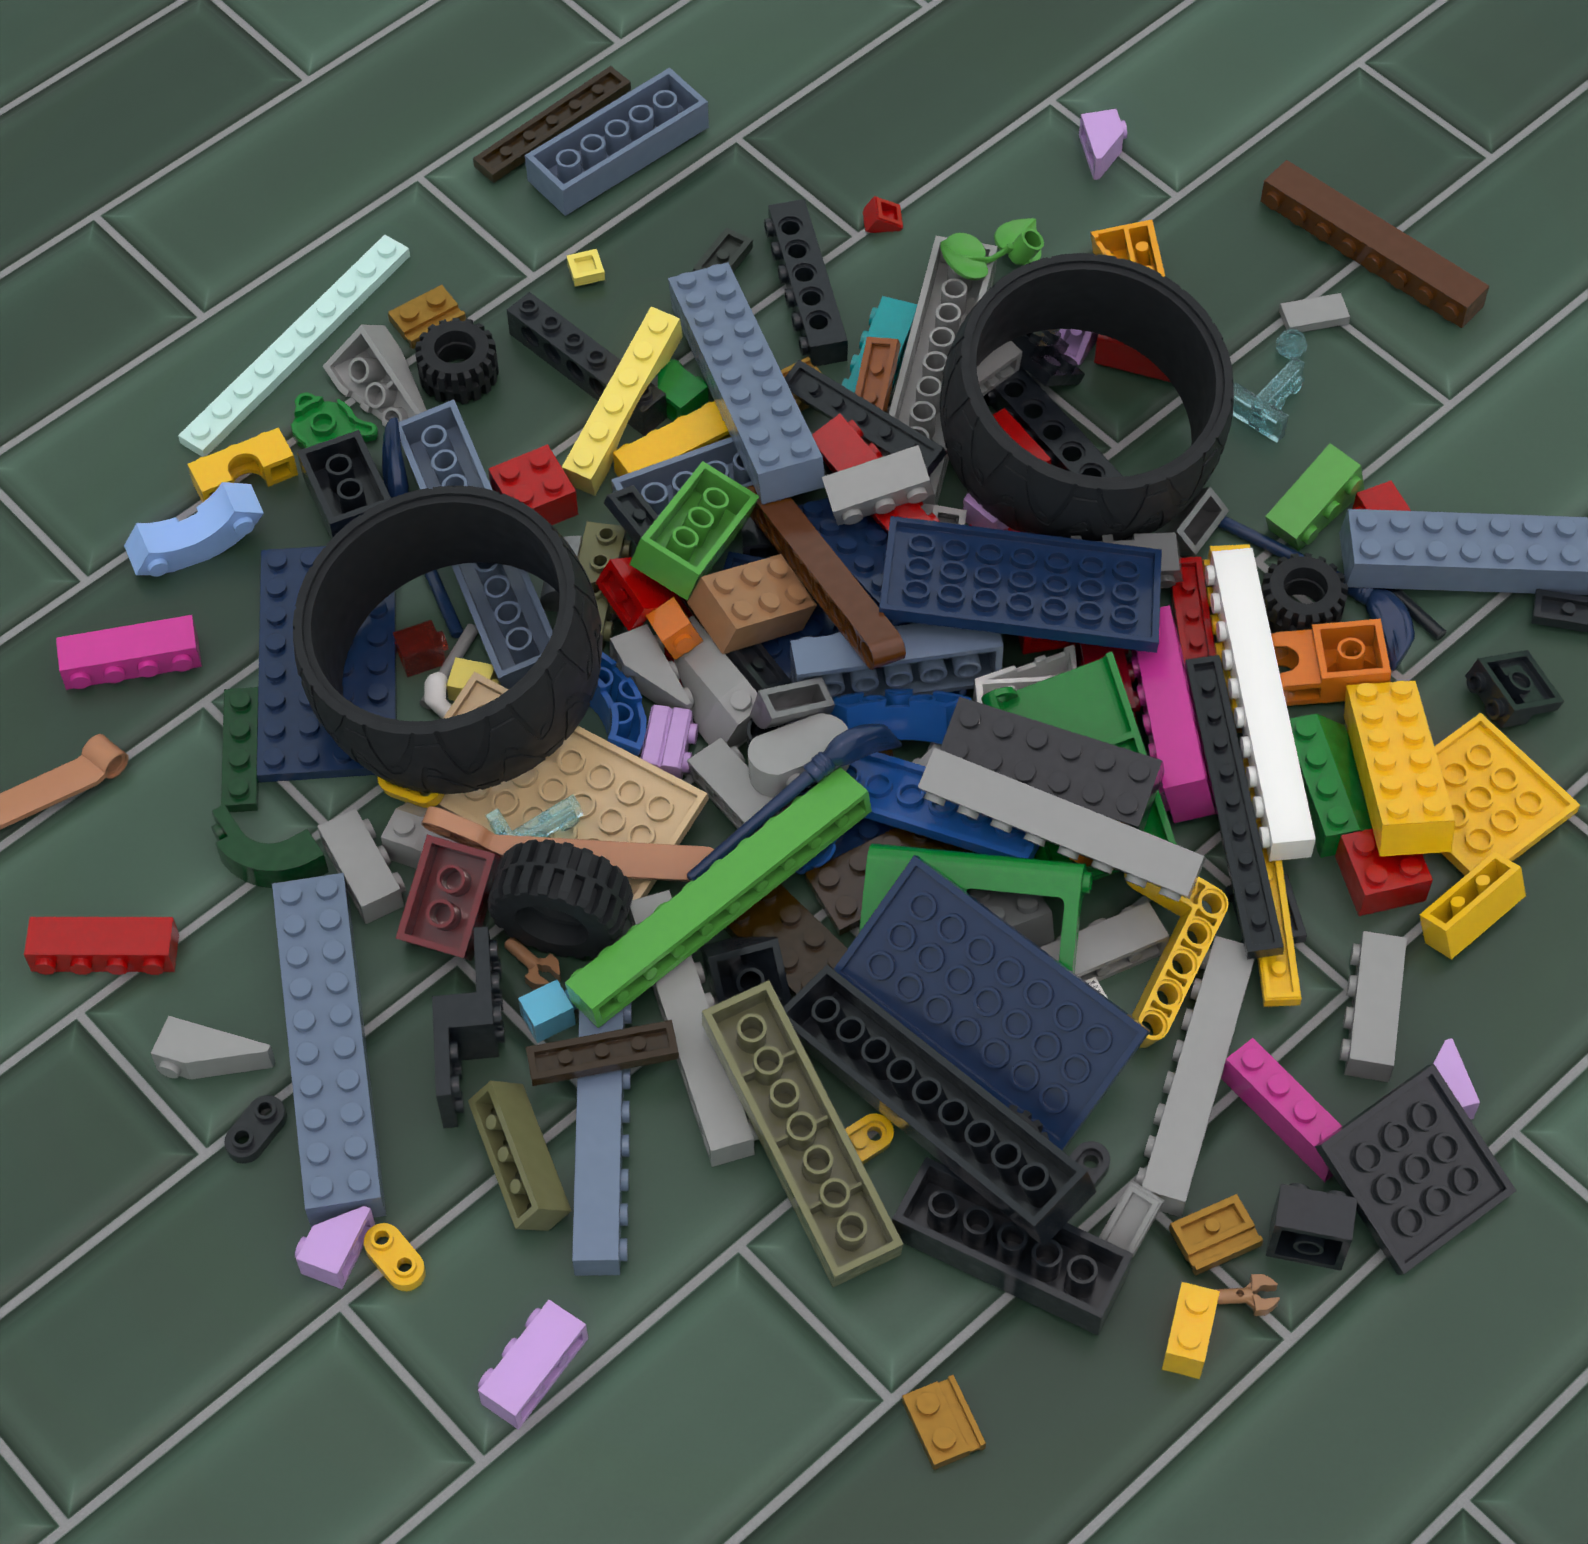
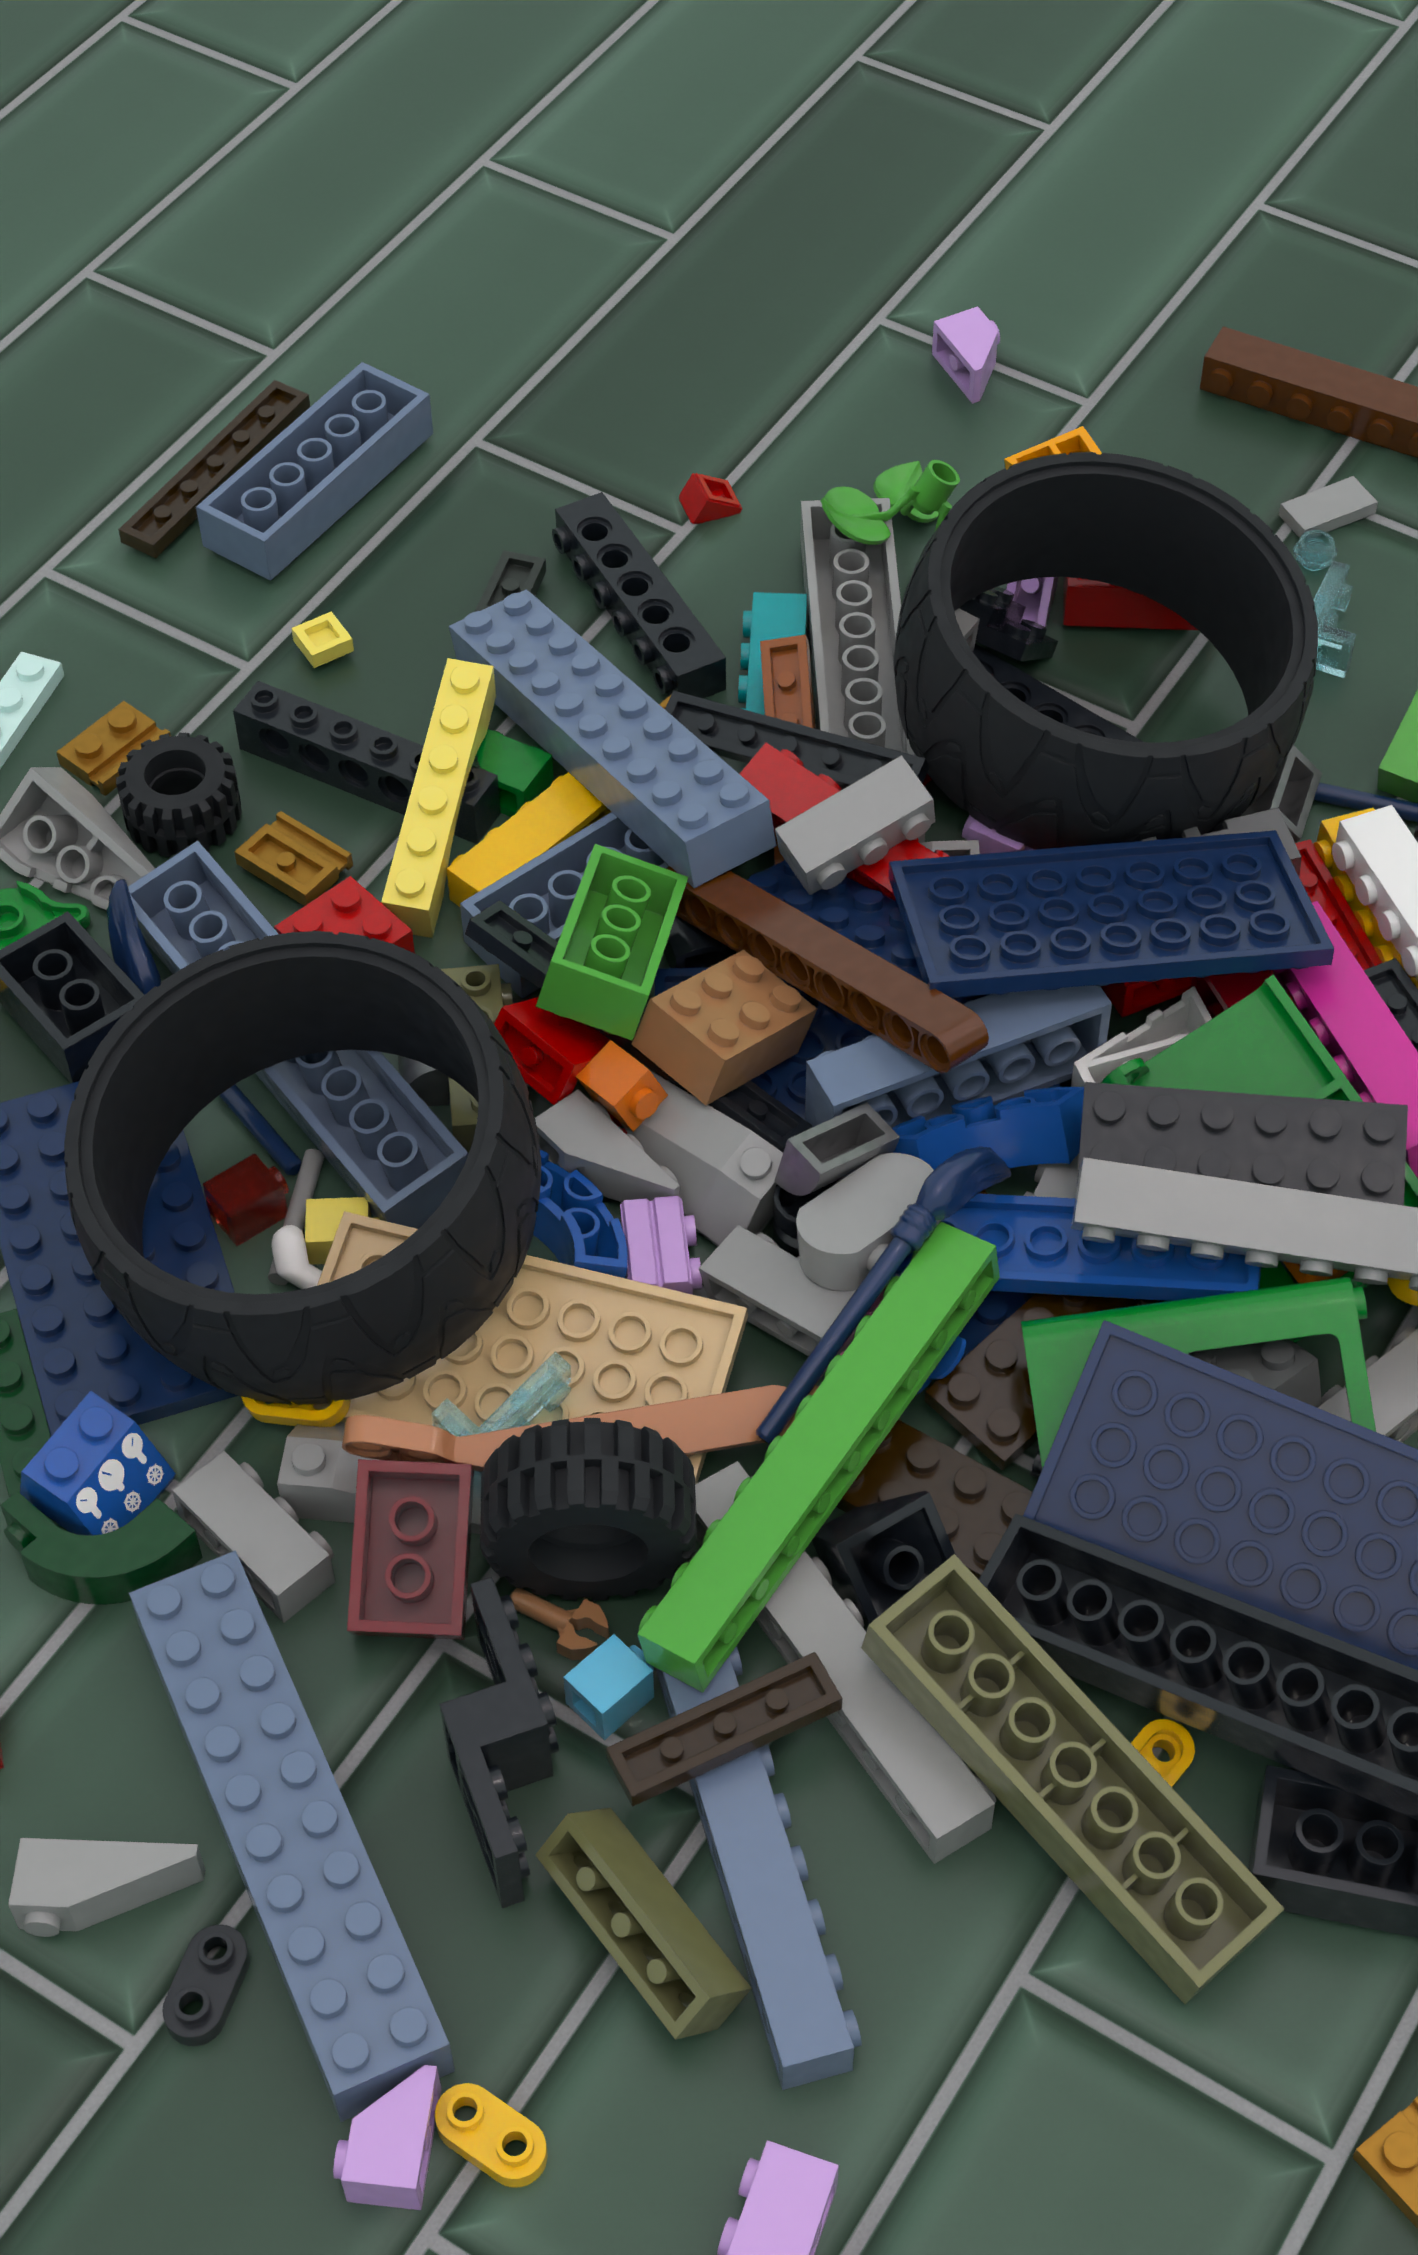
camera: 15 degrees left, 5 degrees down
(275, 802) = (95, 1470): none -> blue slope
(519, 421) = (293, 858): none -> pearl gold plate

